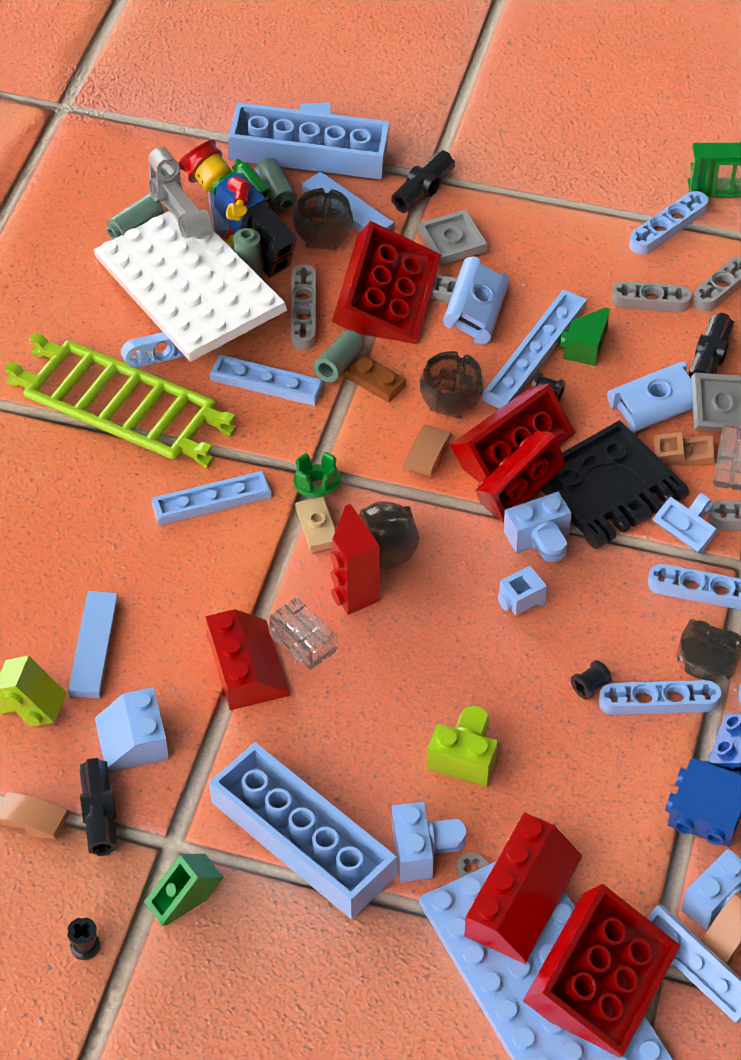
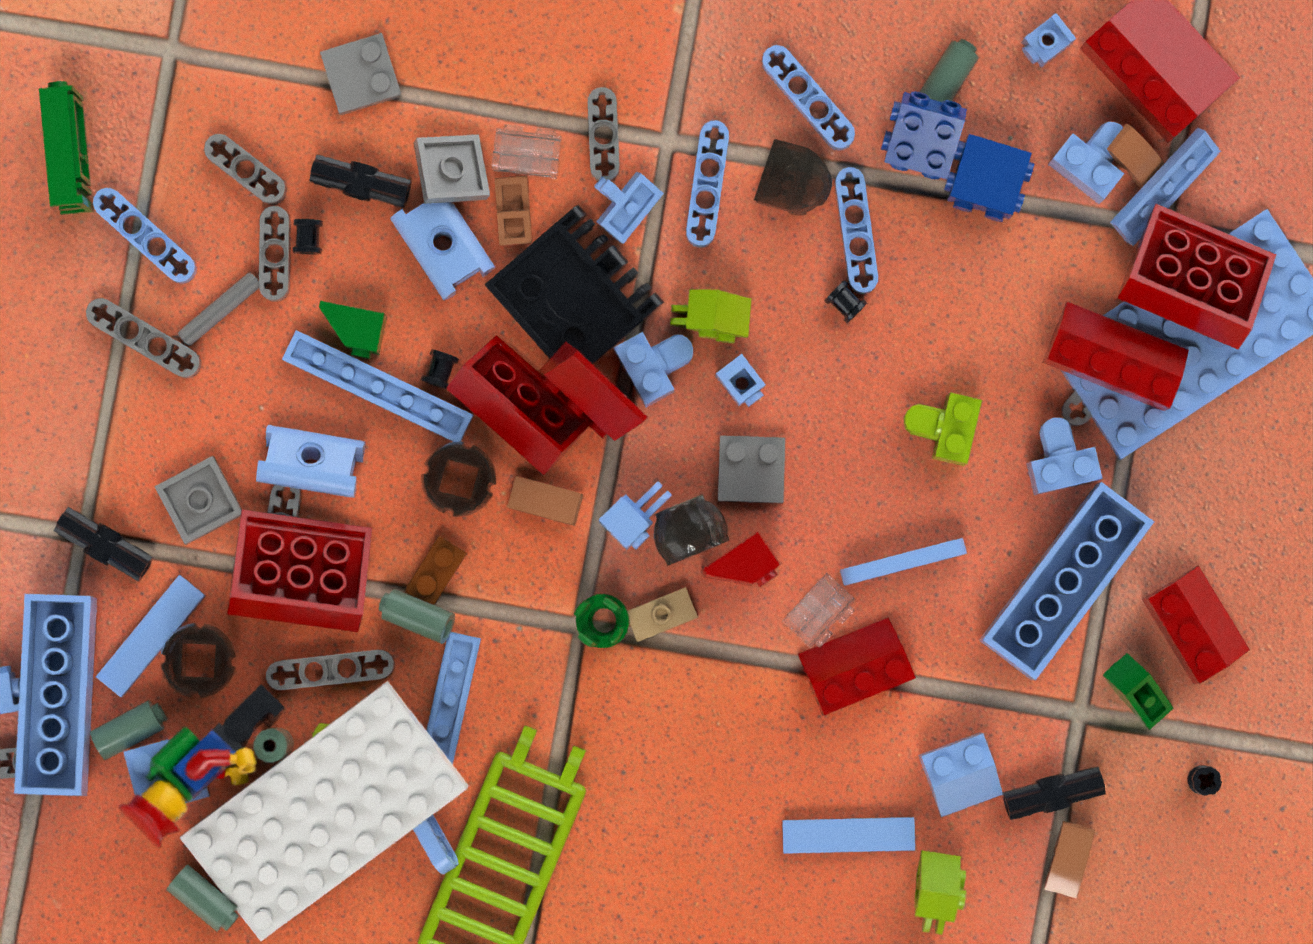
camera: 100 degrees left, 35 degrees up
(167, 187) = (172, 862): light grey piece -> none
(211, 498) = (634, 738): light blue tile -> none
(241, 947) = (1196, 625): none -> red slope
(340, 704) = (903, 561): none -> light blue beam
(404, 484) = (627, 520): none -> light blue brick
(439, 600) = (751, 469): none -> light grey plate
(581, 214) = (144, 337): none -> light grey beam
(584, 570) = (714, 315): none -> lime brick
(605, 259) = (219, 309): none -> light grey axle
(663, 319) = (307, 236): none -> black bush

